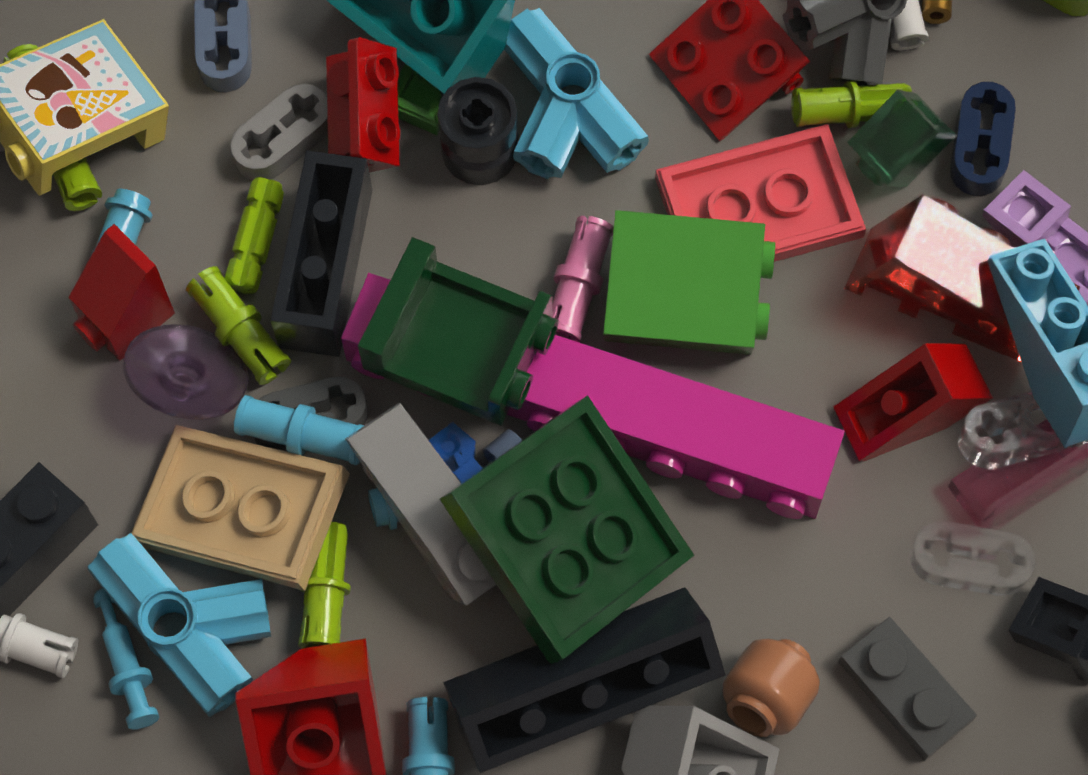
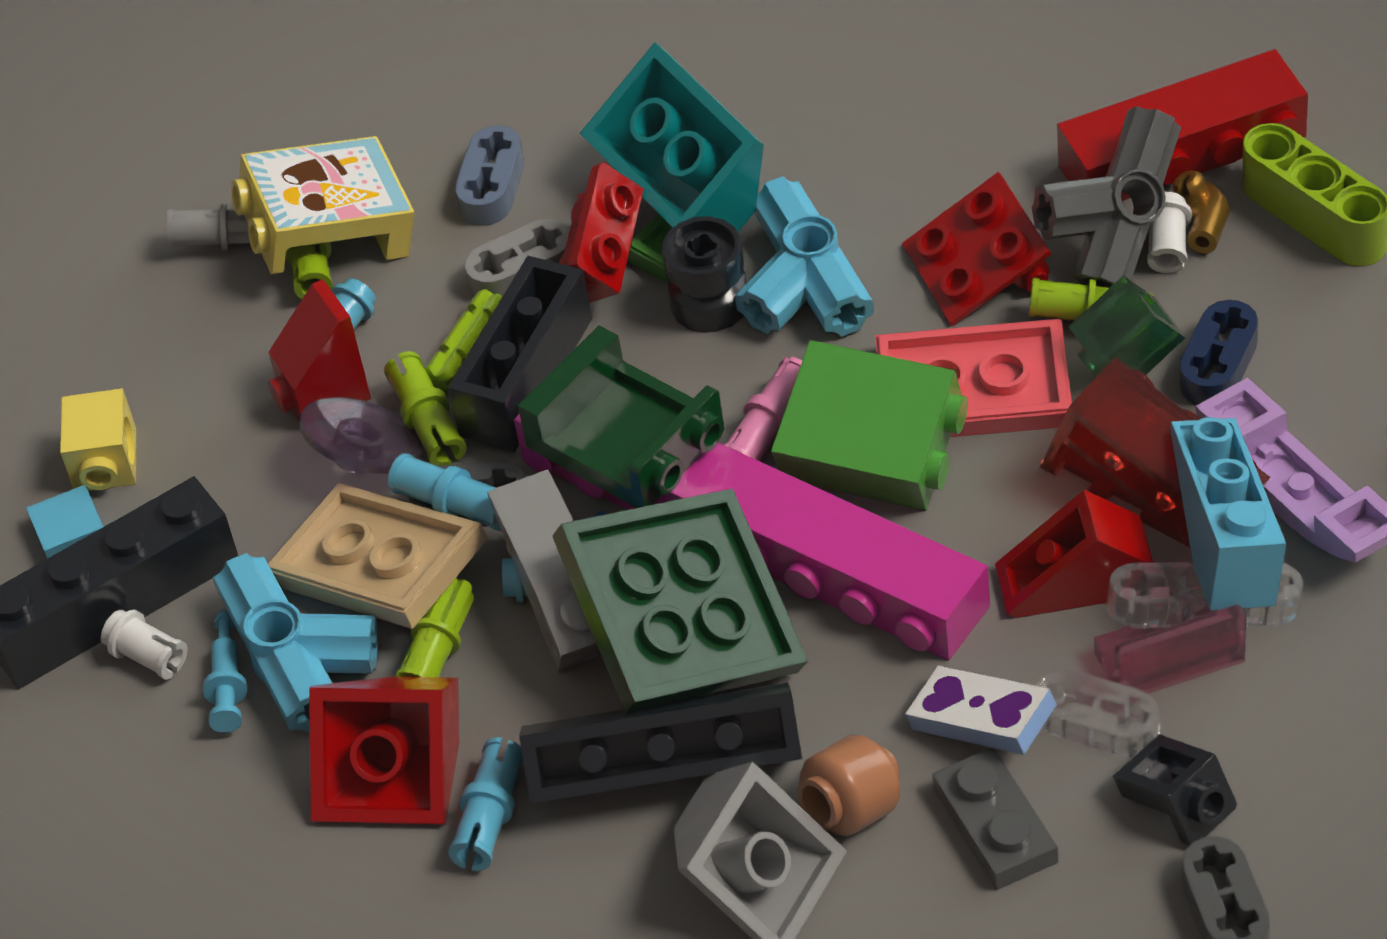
camera: 20 degrees right, 20 degrees down
(870, 580) = (981, 709): none -> tile

